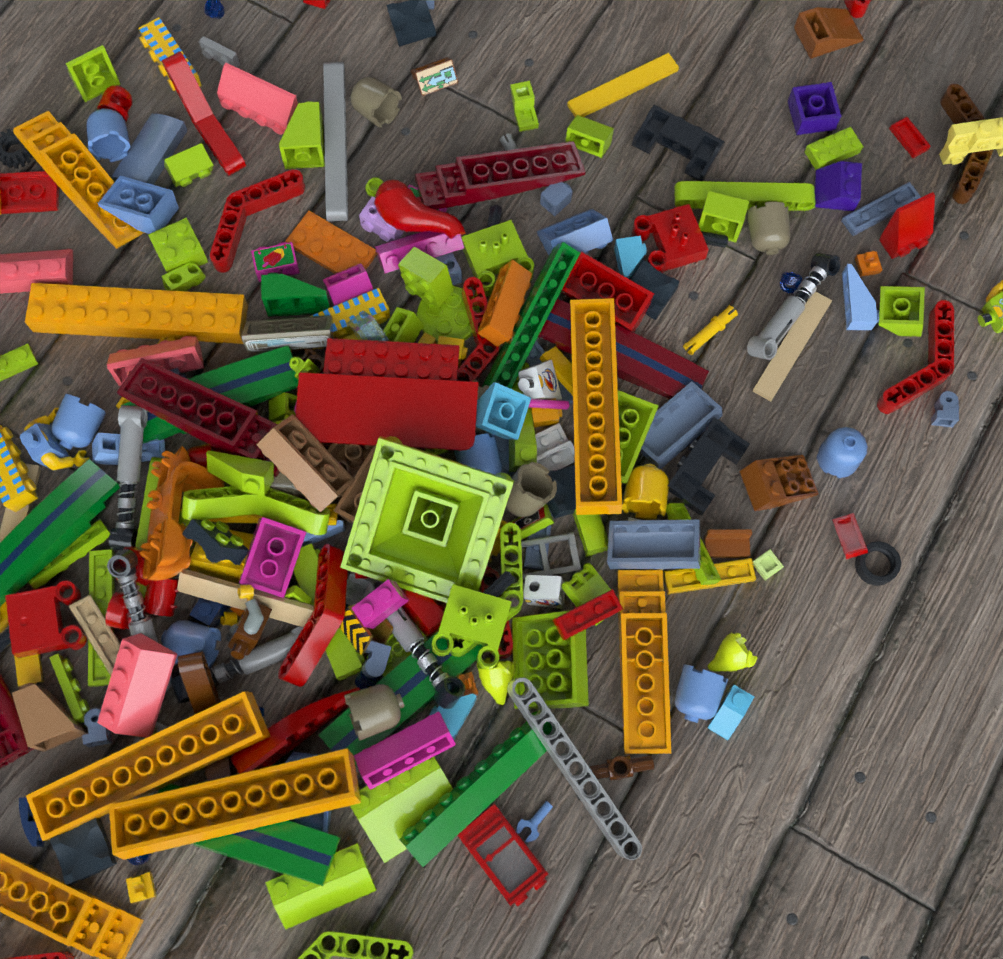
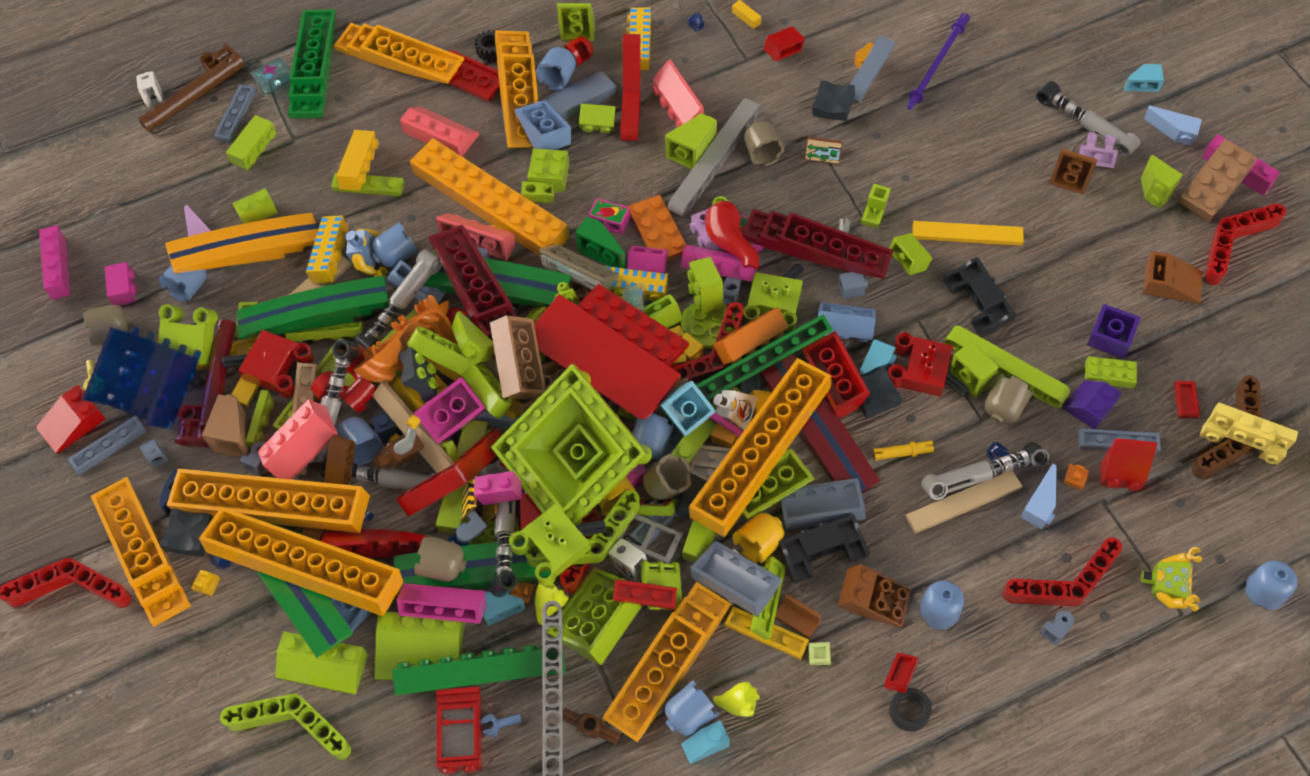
camera: 40 degrees right, 10 degrees down
(218, 52) = (676, 53): light grey plate -> none
(268, 197) = (613, 165): red beam -> none
(902, 310) = (1075, 526): lime slope -> none

